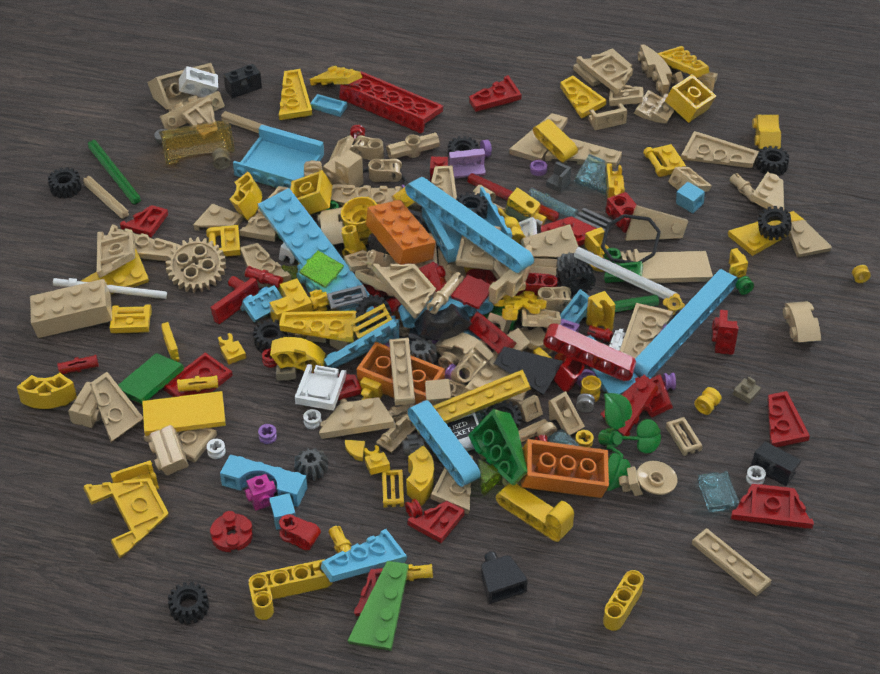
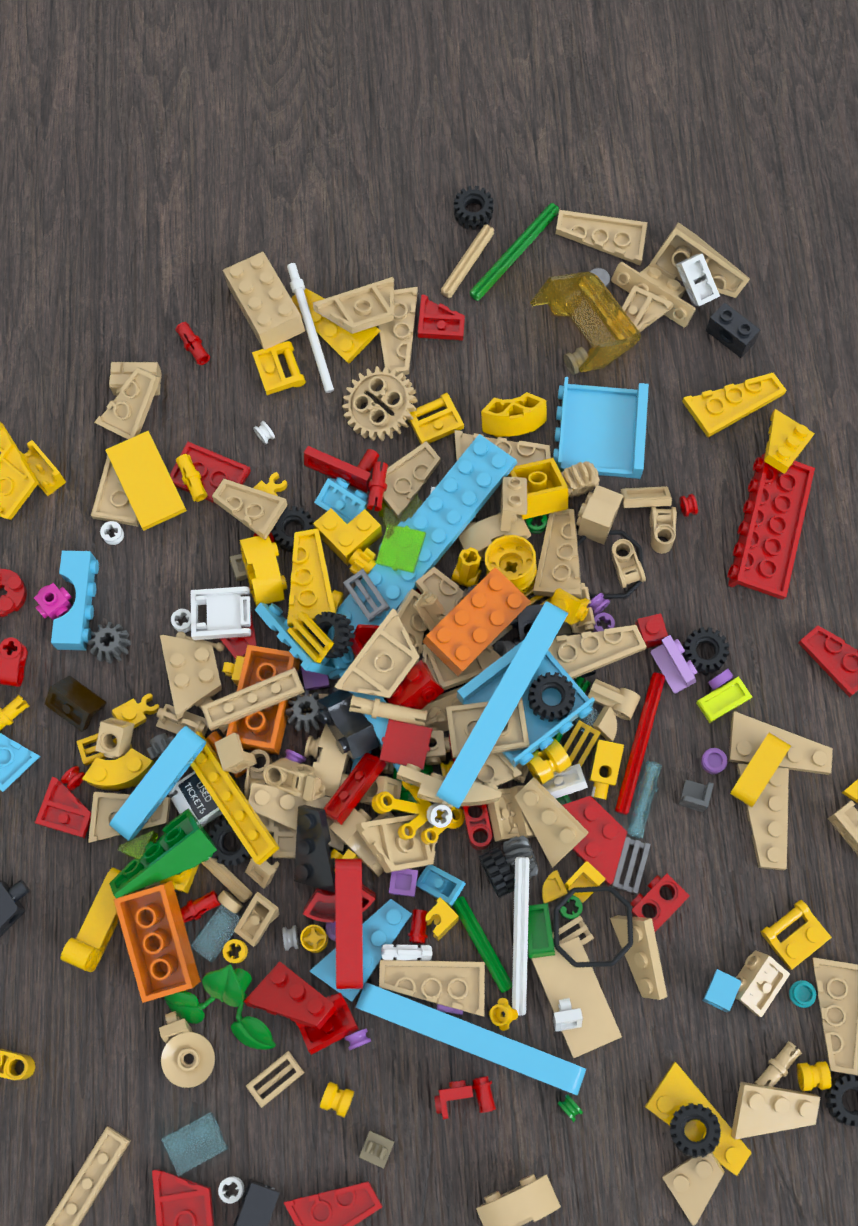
camera: 75 degrees right, 25 degrees up
(46, 392) = (132, 322): yellow brick -> none
(130, 122) = (608, 234): none -> tan wing
(150, 378) = (192, 424): green tile -> none
(168, 450) = (85, 485): tan brick -> none
(170, 342) = (244, 427): yellow tile -> none
(184, 334) = (264, 432): none -> white bush
(217, 216) = (472, 396): tan wing -> none
(241, 121) = (657, 371): tan axle -> none
(242, 348) = (250, 506): none -> tan wing
(268, 438) = (150, 586): medium lavender bush -> none
(281, 506) = (34, 636): medium azure panel -> none
(318, 200) = (512, 500): none -> tan bracket
(328, 105) = (735, 450): medium azure tile -> none
(352, 499) = (74, 702): none -> dark brown panel
(355, 449) = (150, 683): yellow tile -> none
(398, 458) = (121, 730): none -> tan brick
(413, 146) = (697, 595): tan piece -> none
(500, 154) = (724, 699): none -> neon yellow tile
(528, 293) = (431, 814): none -> white bush
(555, 297) = (461, 853): tan piece -> none
(593, 174) = (723, 840): clear light blue wing -> none
(614, 181) = (714, 876): yellow hinge -> none
(685, 266) = (567, 1018): none -> white tile
(702, 165) = (802, 994): none -> teal plate
(737, 263) = (613, 1090): yellow bracket -> none
(754, 172) = (812, 1076): none -> yellow wheel

